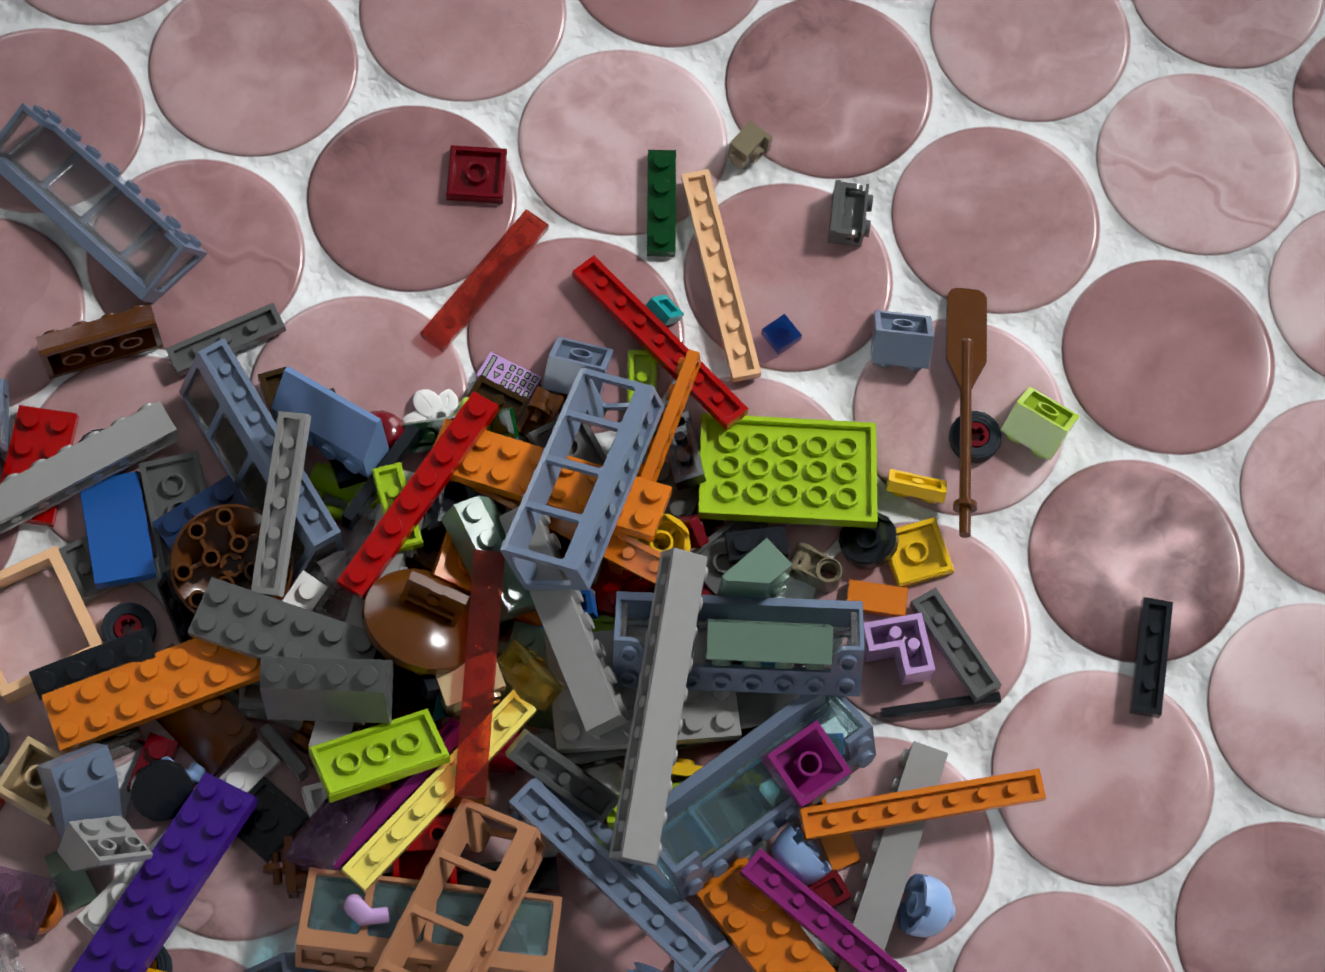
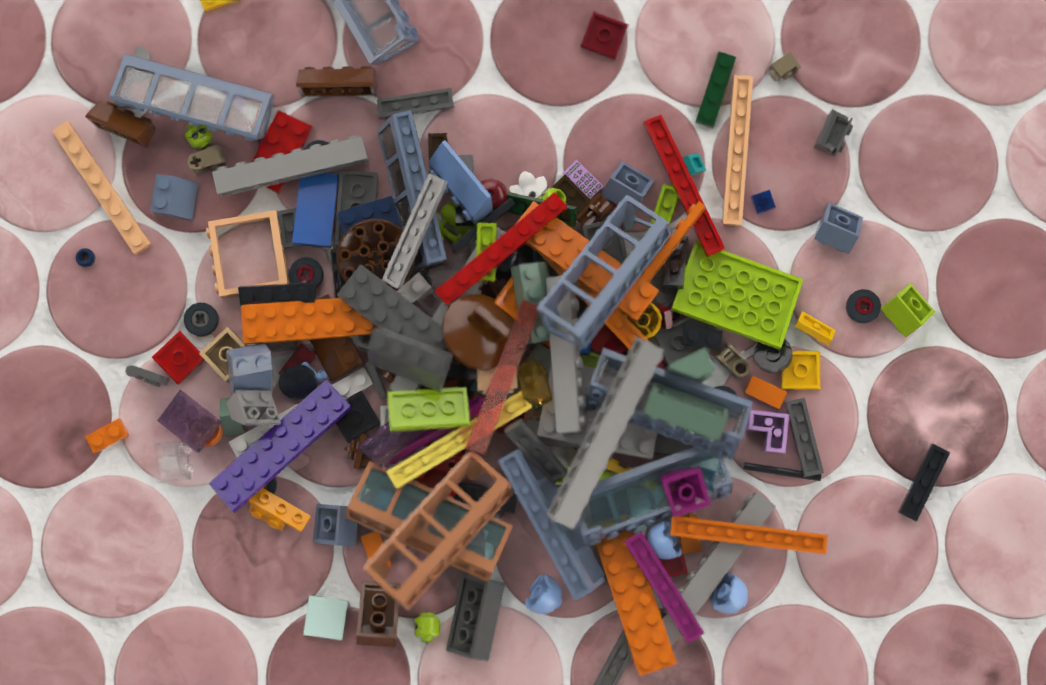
camera: 25 degrees right, 15 degrees up
(362, 913) = (391, 501): lavender arm -> none
(484, 280) = (587, 110): clear red tile -> none
(966, 359) = (875, 254): reddish brown piece -> none

